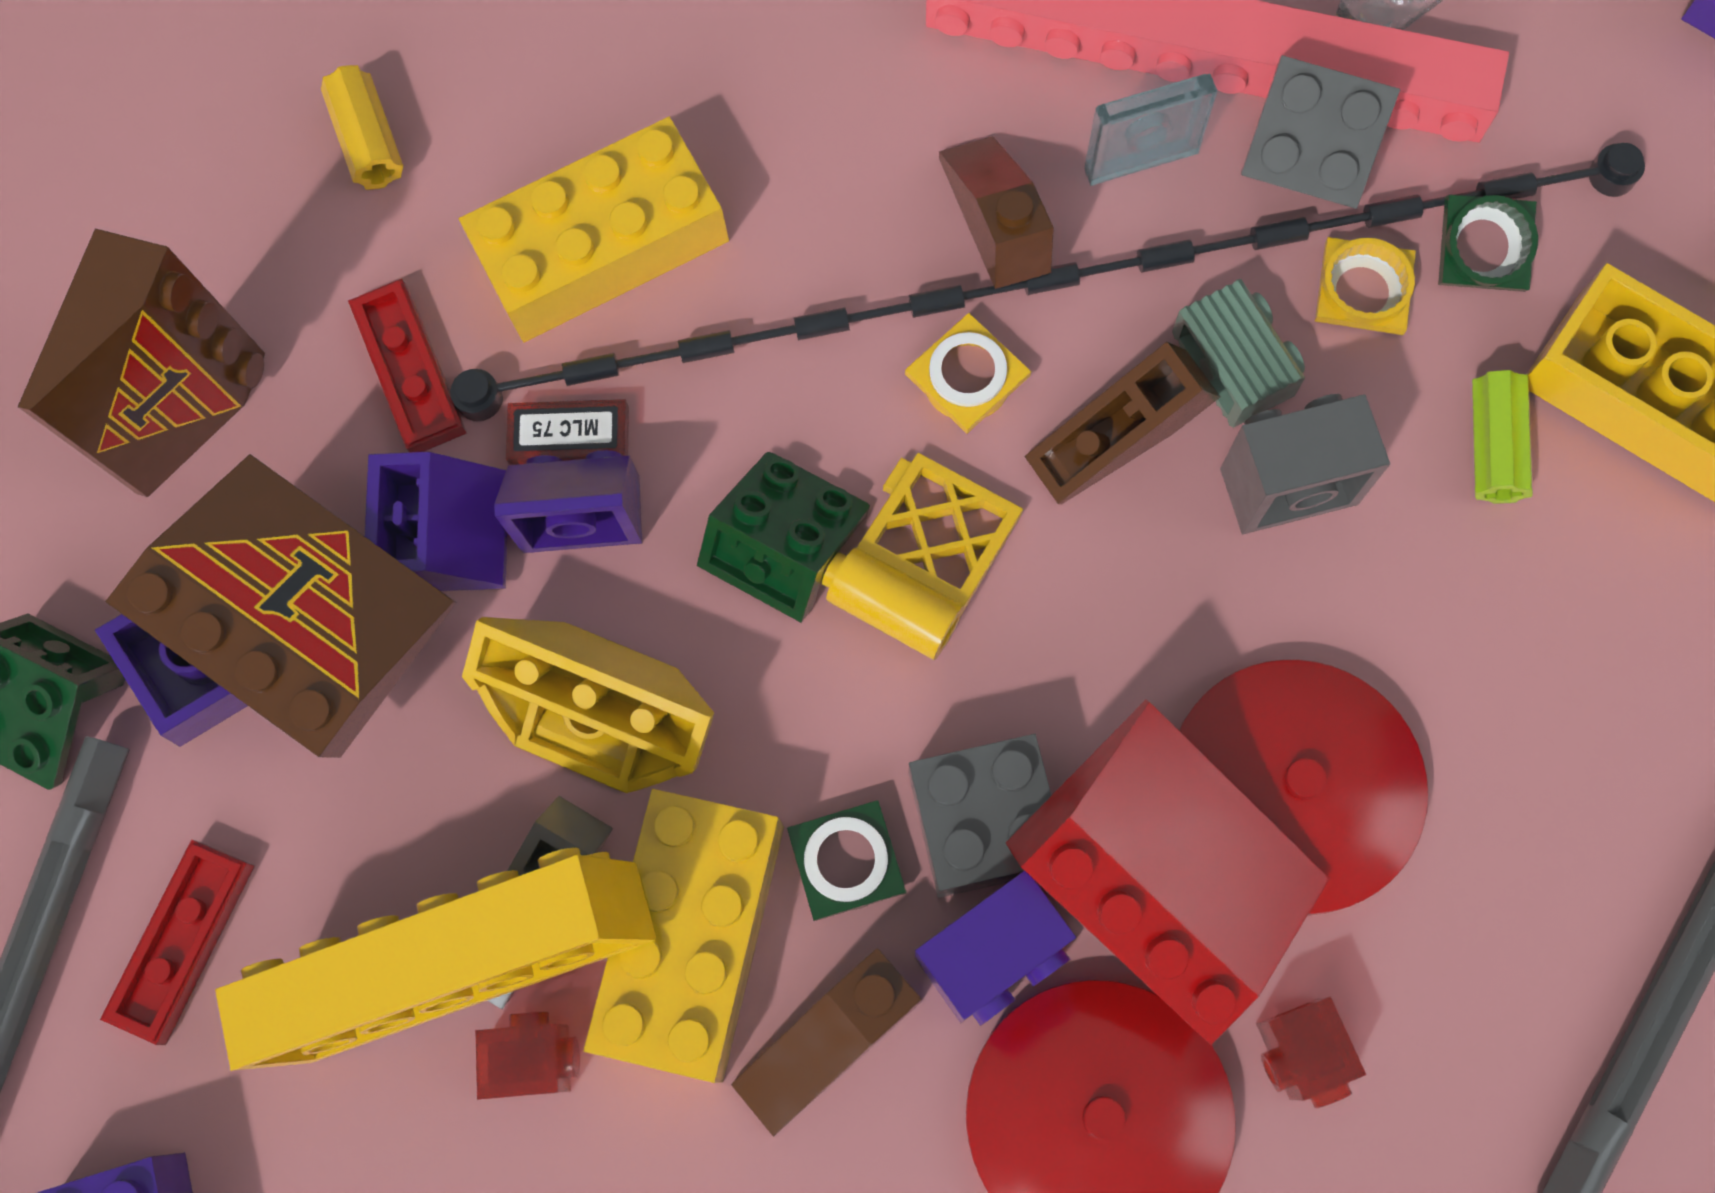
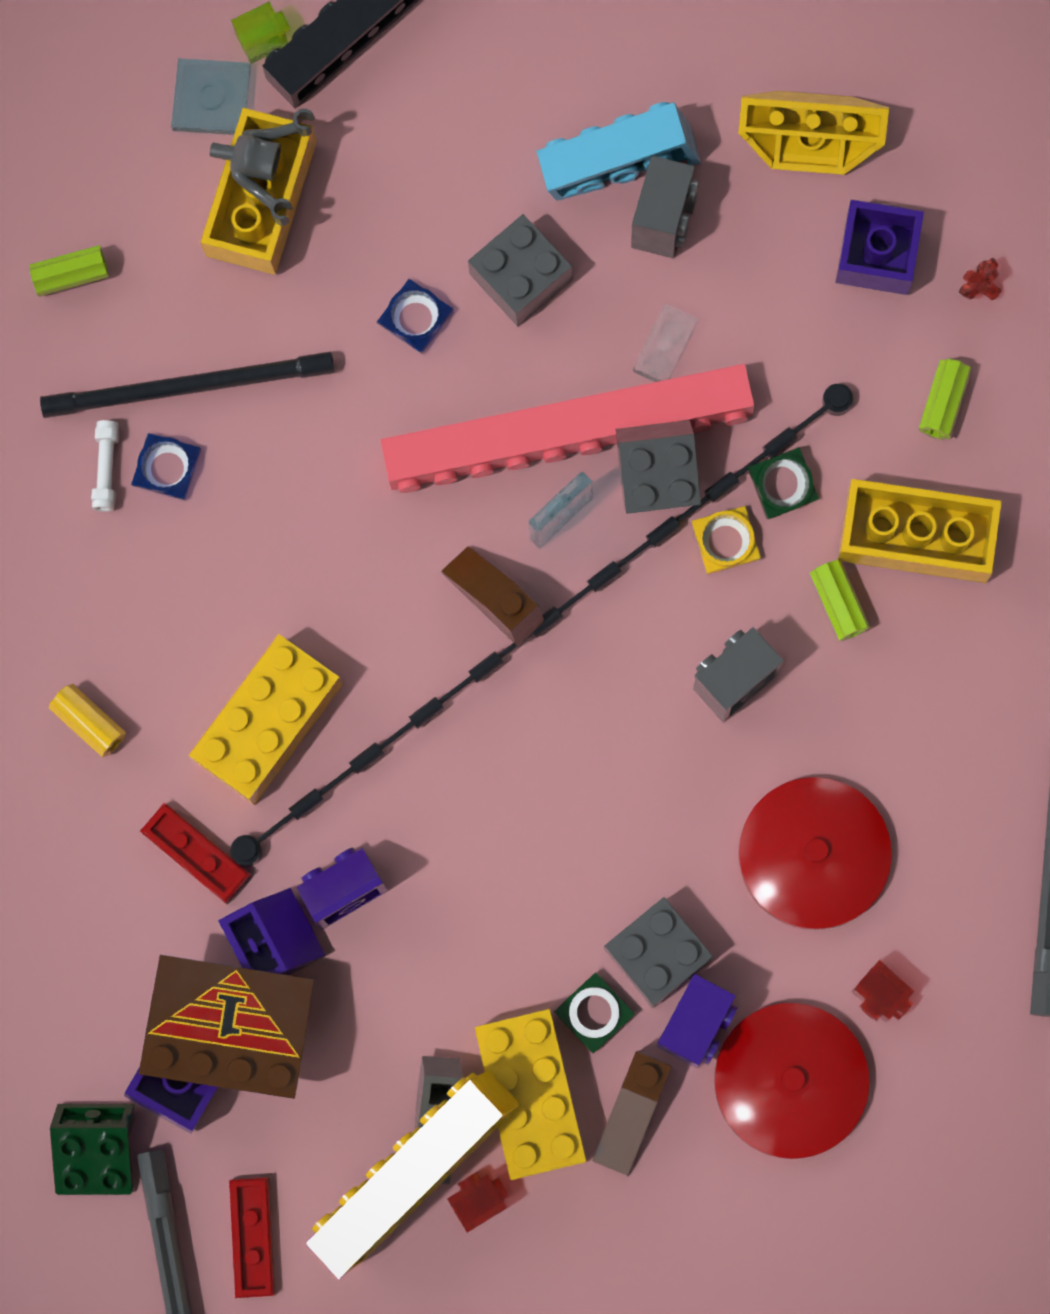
camera: 25 degrees left, 5 degrees up
(140, 363) = (71, 930): reddish brown slope -> none
(566, 429) = (311, 847): tile -> none
(587, 702) = (412, 996): yellow wedge -> none
(779, 534) = (467, 848): dark green bracket -> none
(895, 592) = (545, 851): yellow piece -> none
(967, 408) = (532, 725): piece -> none
(1123, 422) = (627, 692): reddish brown slope -> none
(1172, 870) = (768, 935): red slope -> none
(1240, 351) = (673, 618): sand green brick -> none

